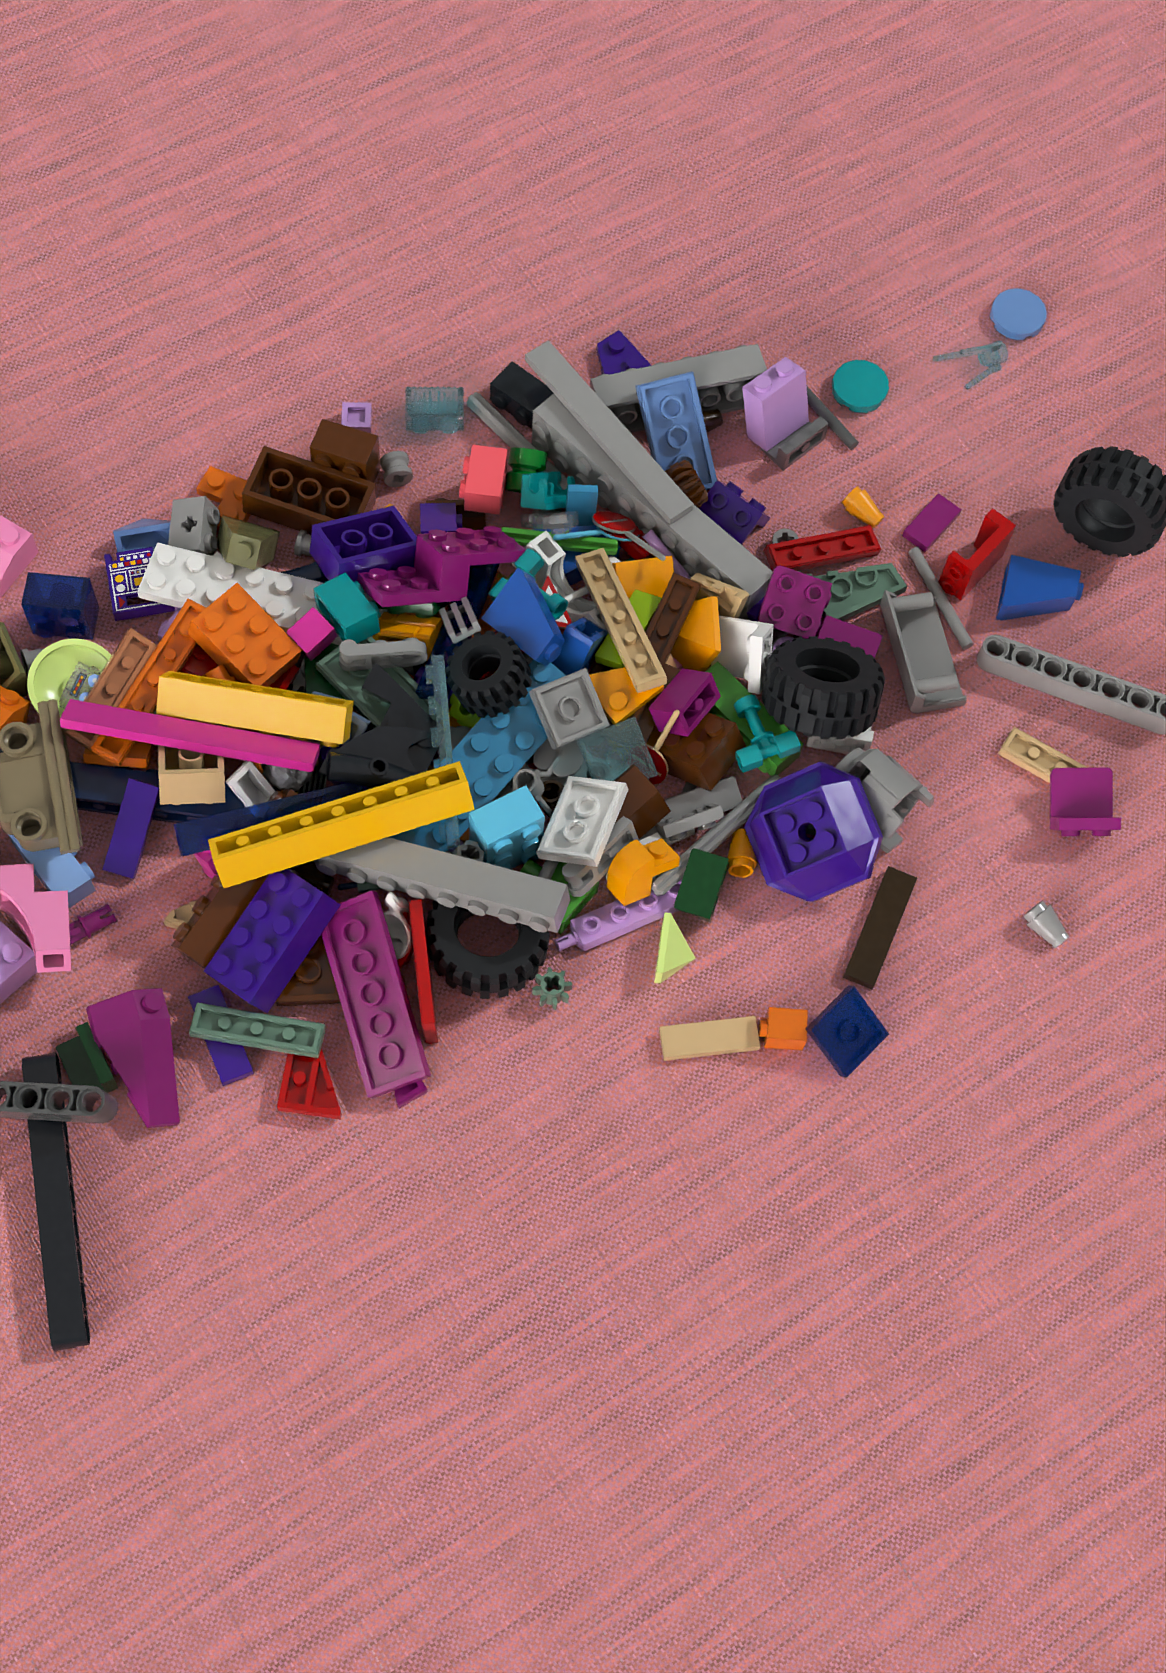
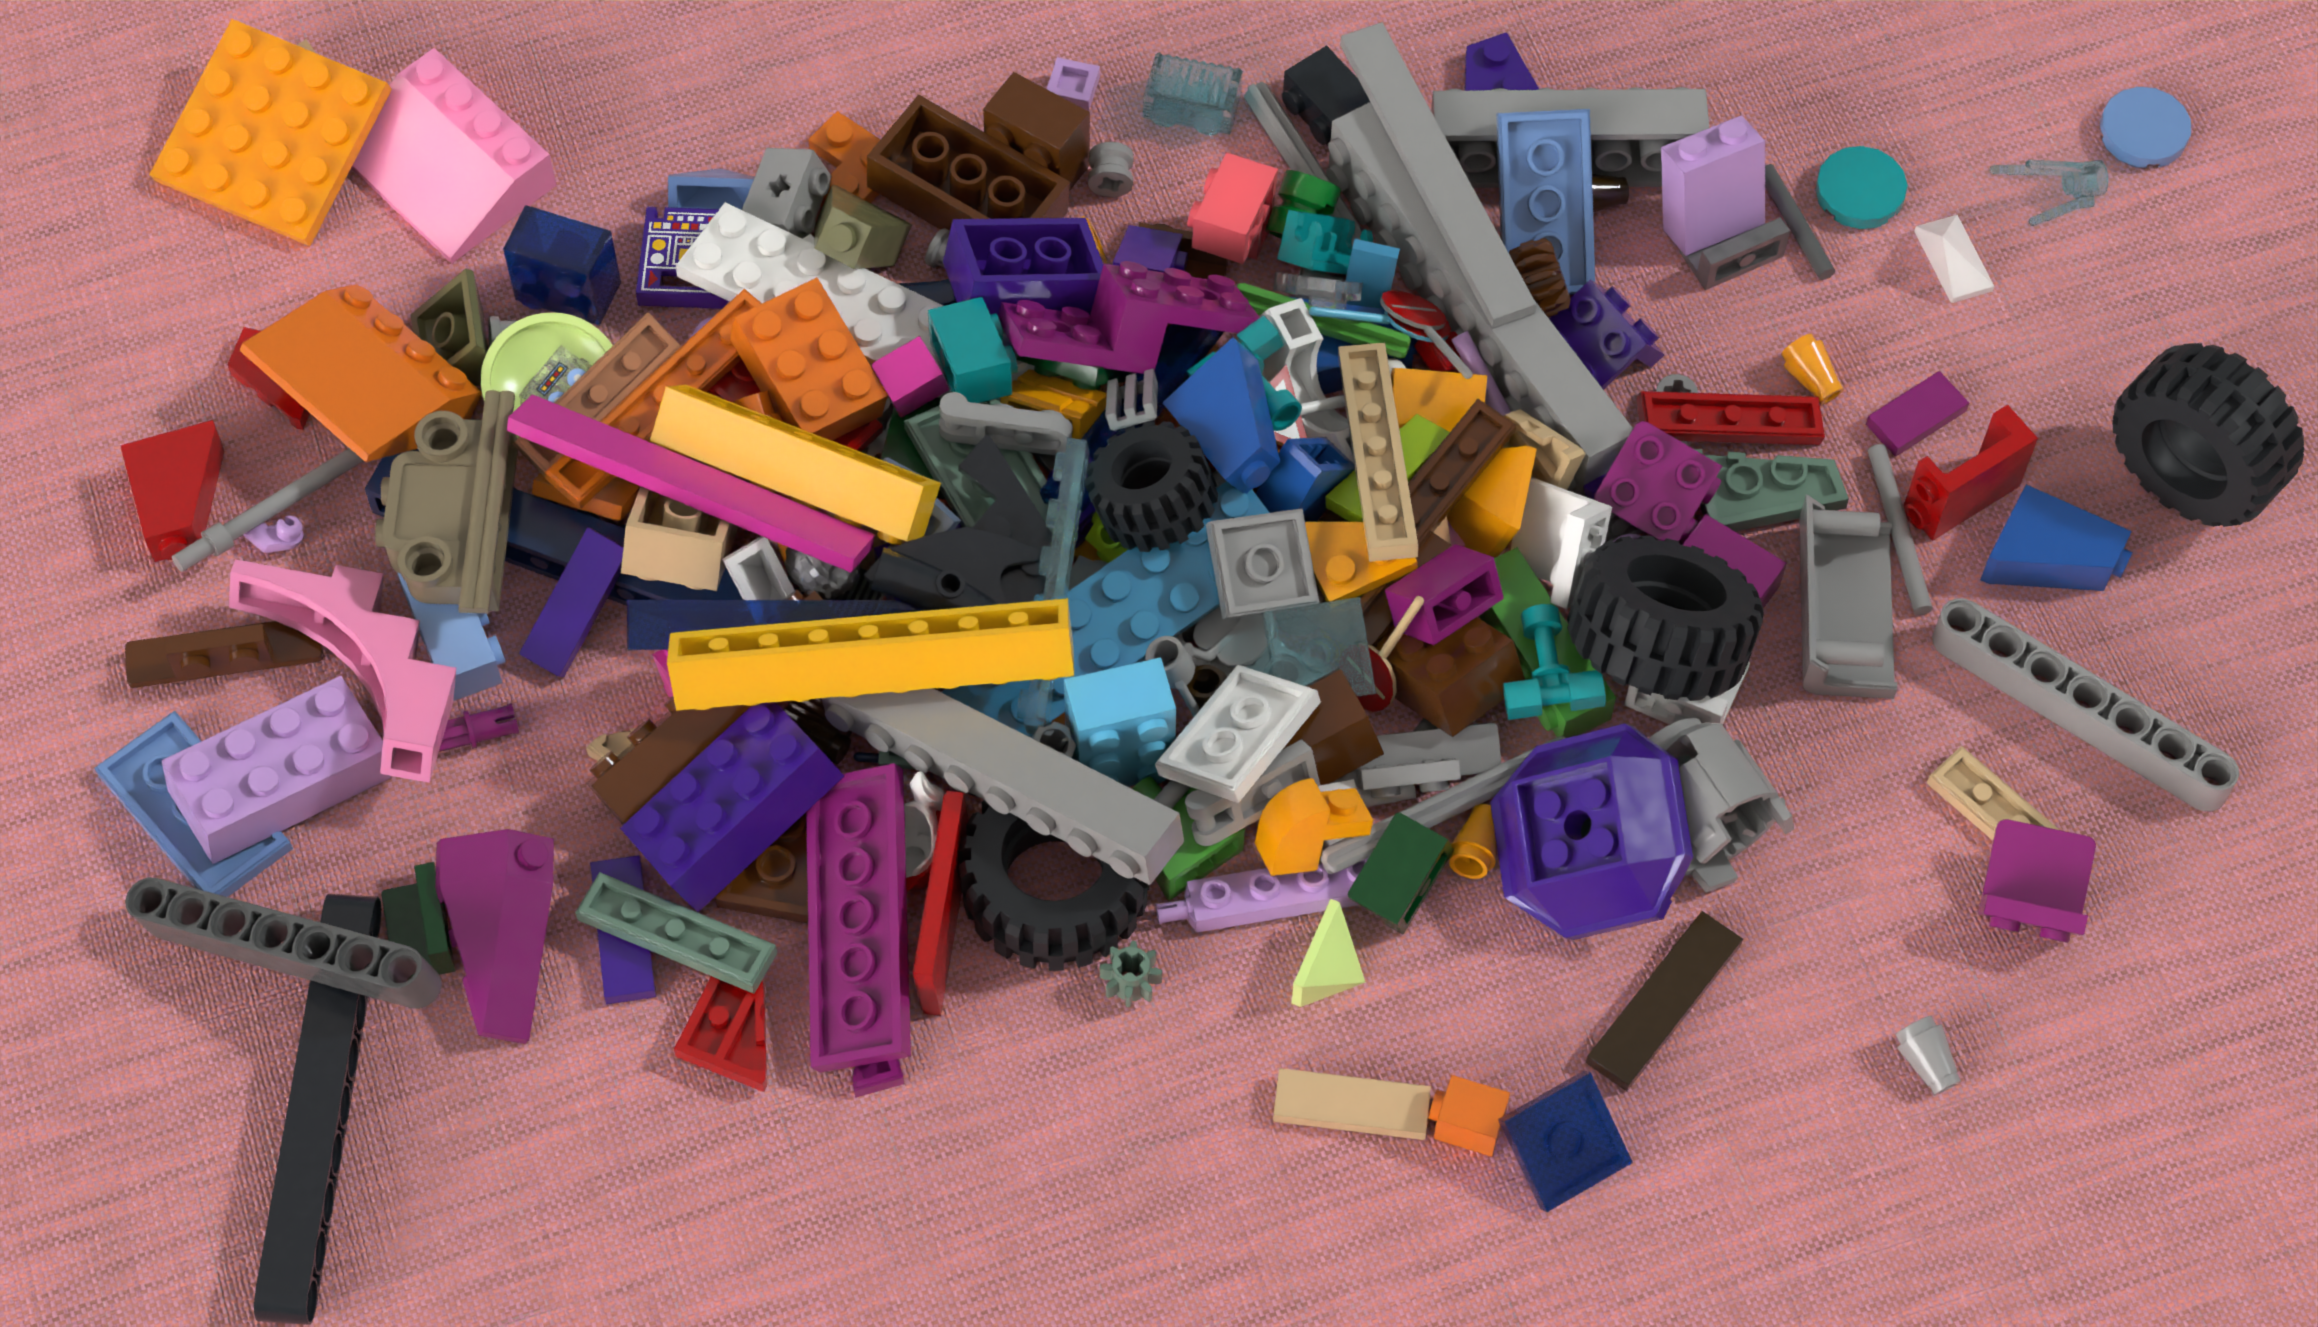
camera: 20 degrees right, 5 degrees down
(927, 420) = (1954, 259): none -> white slope

